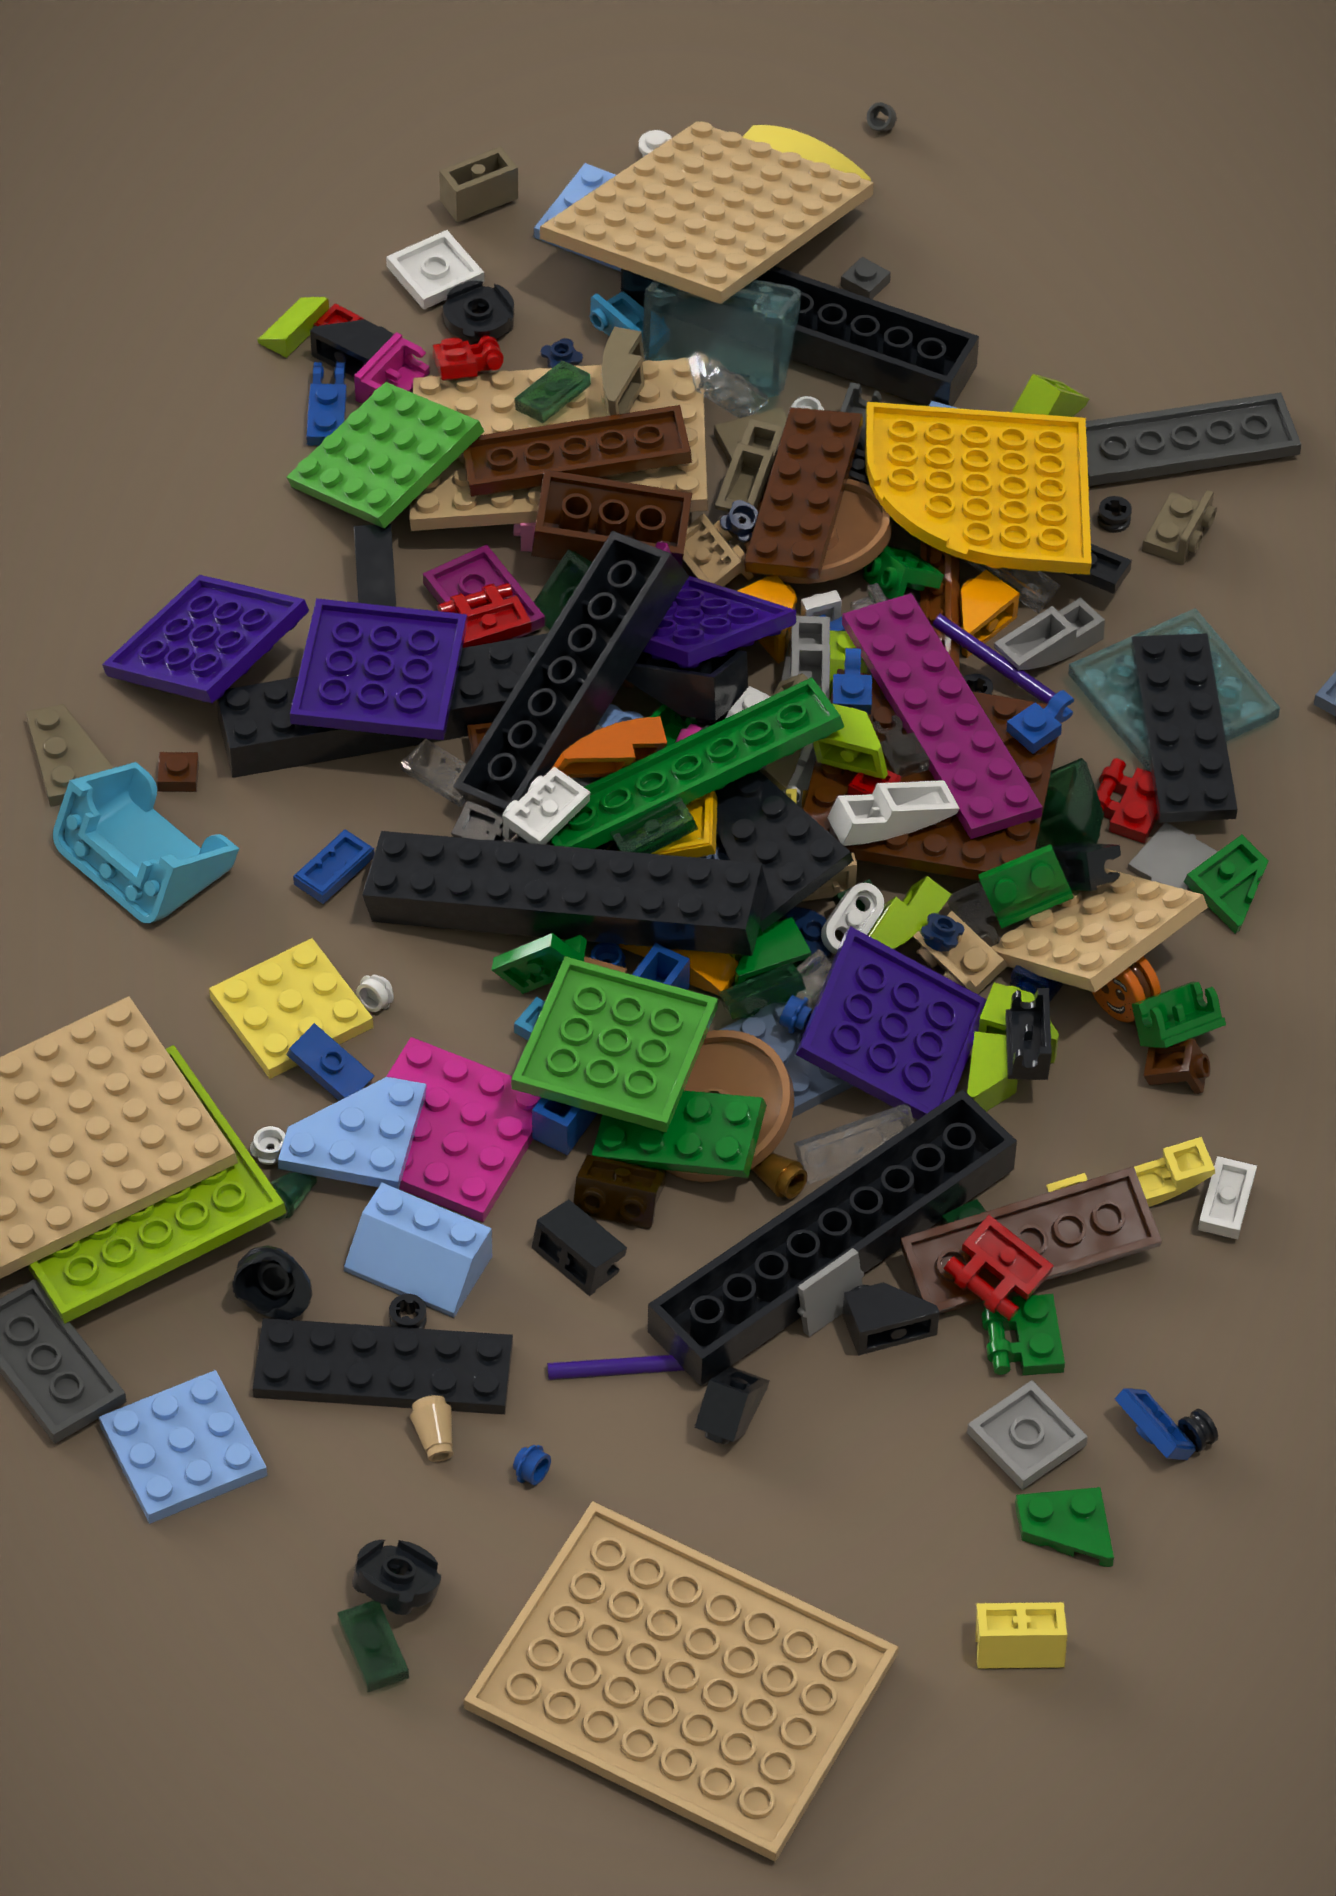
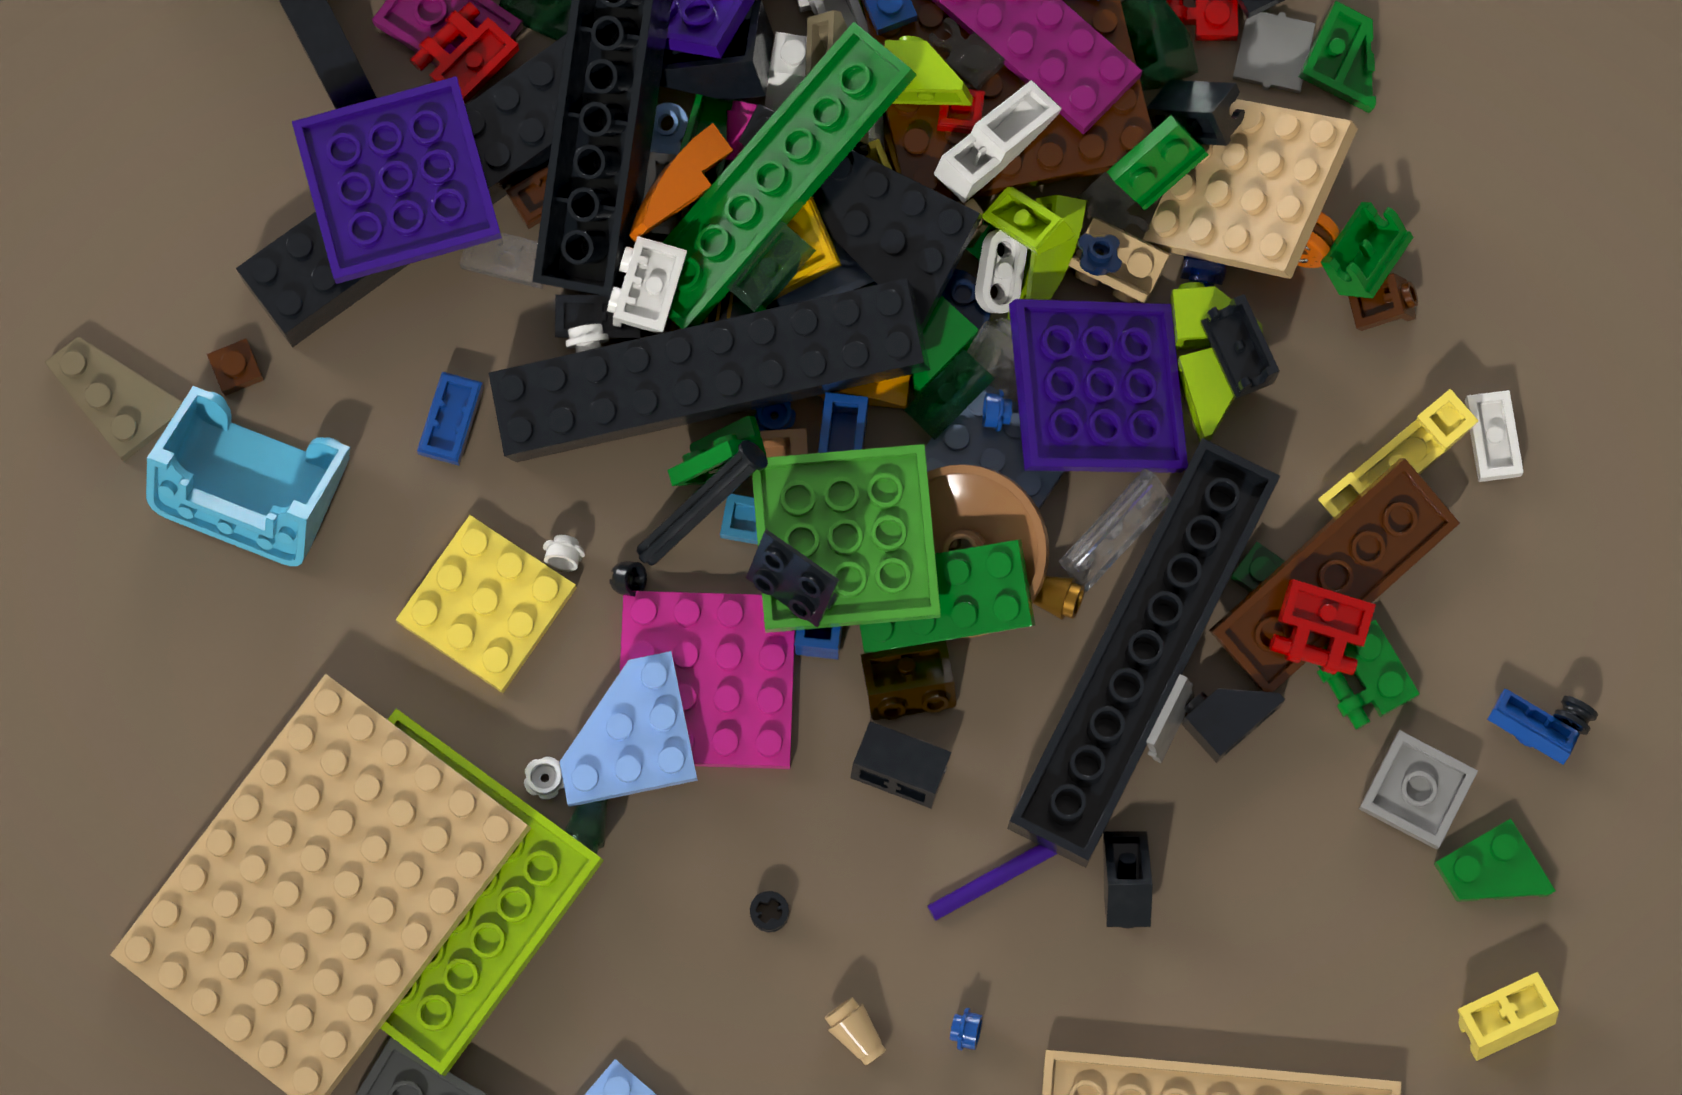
camera: 20 degrees left, 25 degrees up
(205, 638) = (192, 203): dark purple plate -> none
(272, 1283) = (626, 941): black piece -> none
(329, 1063) = (560, 661): blue plate -> none
(382, 1365) = (772, 979): black plate -> none
(419, 1249) = (748, 839): light blue slope -> none
(424, 1025) = (620, 575): none -> black hinge
(476, 830) = (586, 337): none -> white plate
(508, 983) = (702, 502): none -> black axle
(553, 1037) = (792, 579): none -> black hinge
(892, 881) = (1027, 221): none -> lime slope

